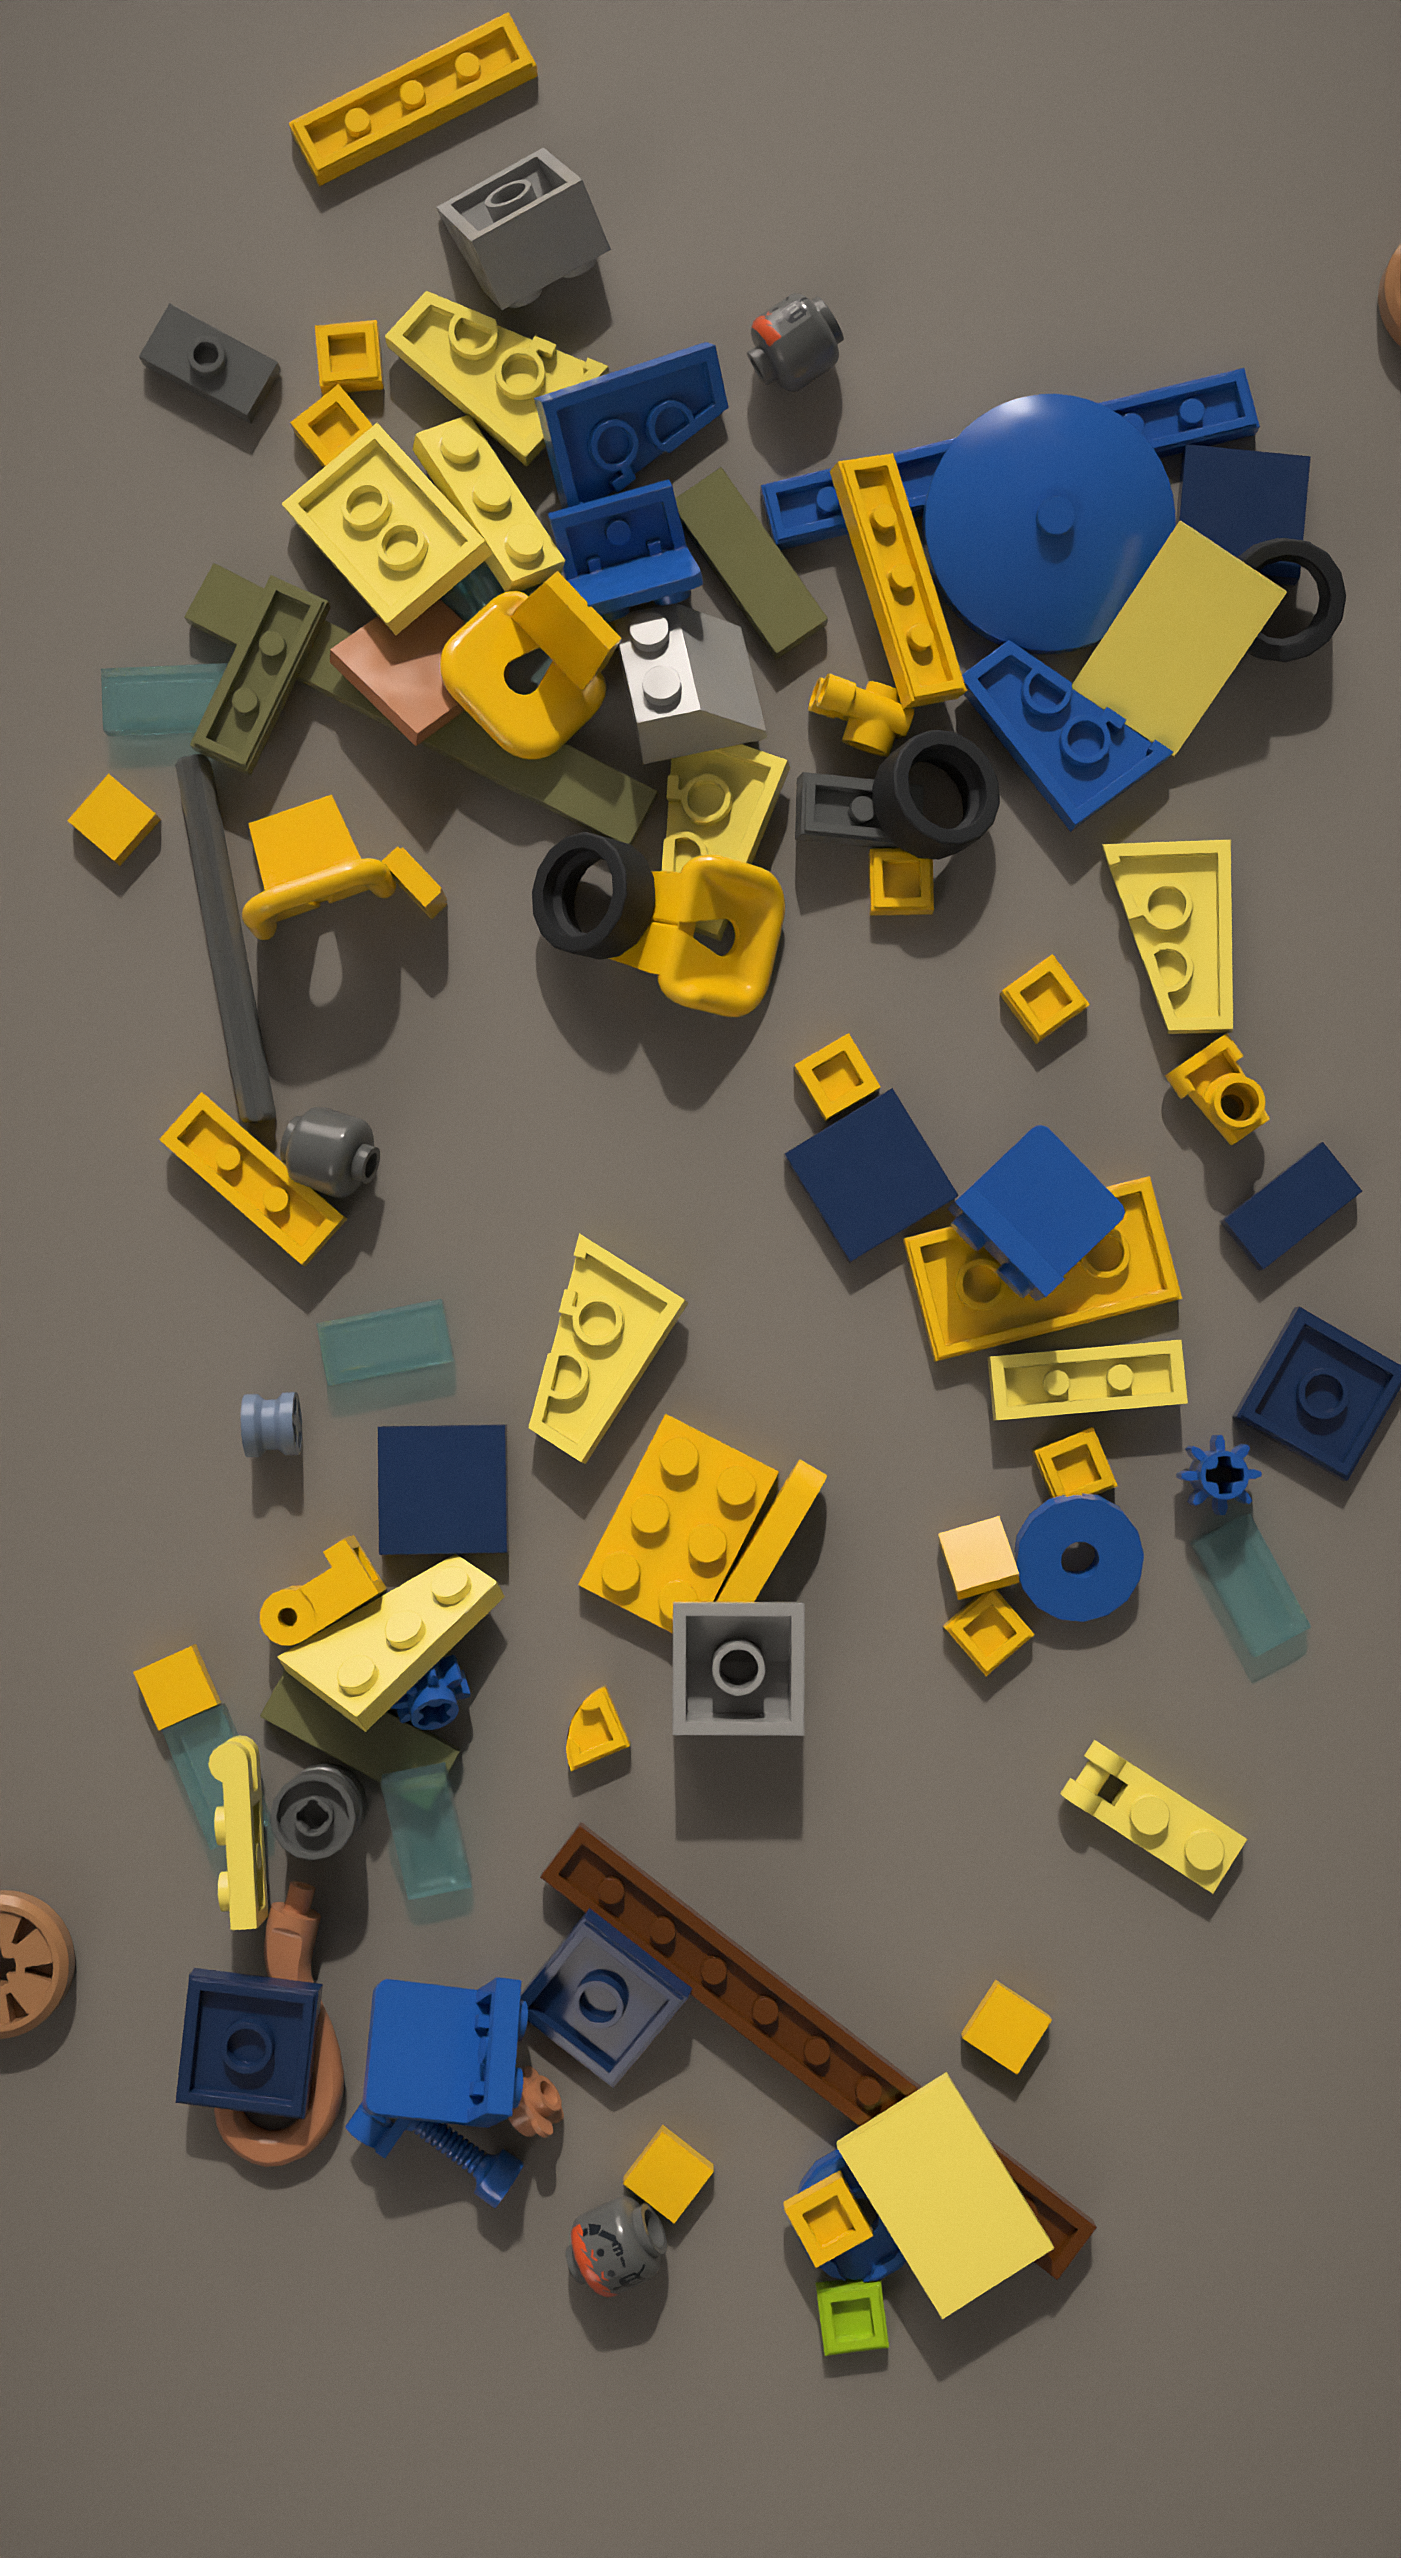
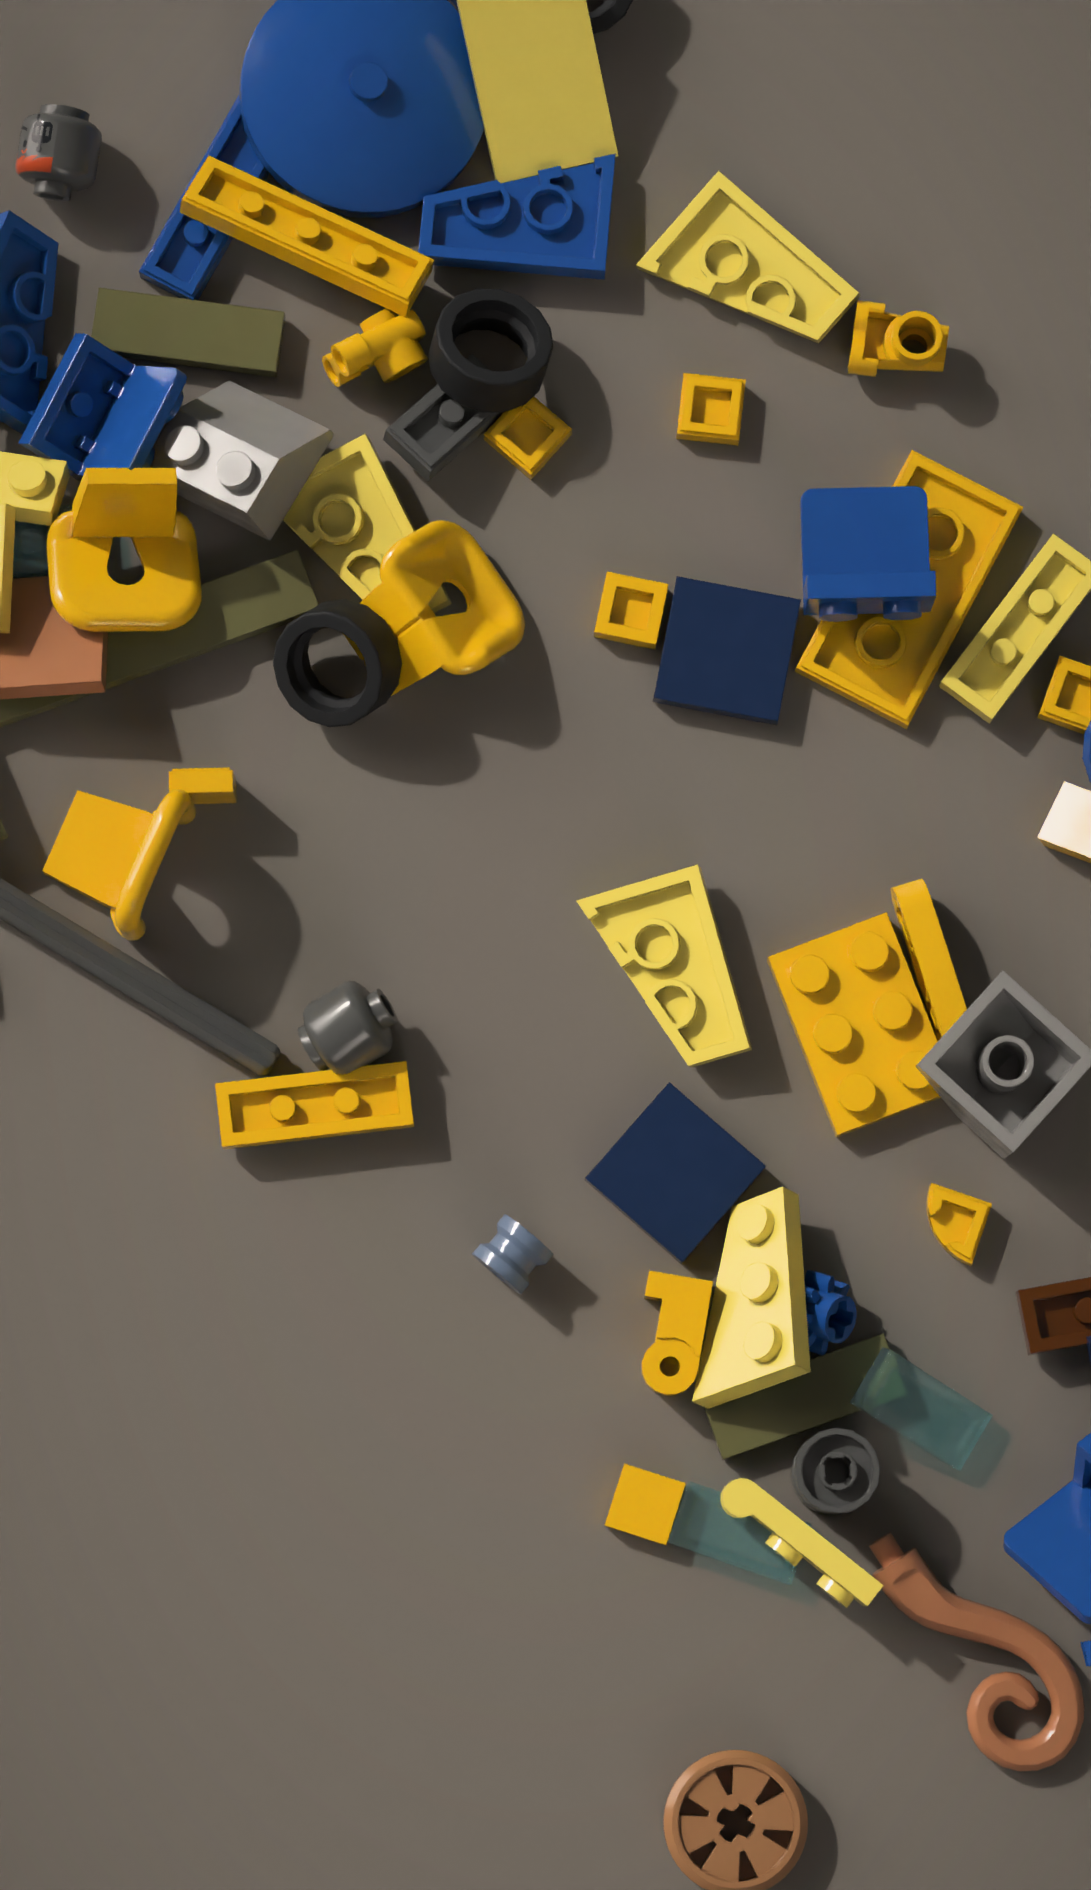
camera: 50 degrees left, 5 degrees down
(249, 2043) = (962, 1678): dark blue tile -> none
(385, 1342) = (526, 1117): clear light blue tile -> none
(1290, 1206) = (1026, 369): dark blue tile -> none

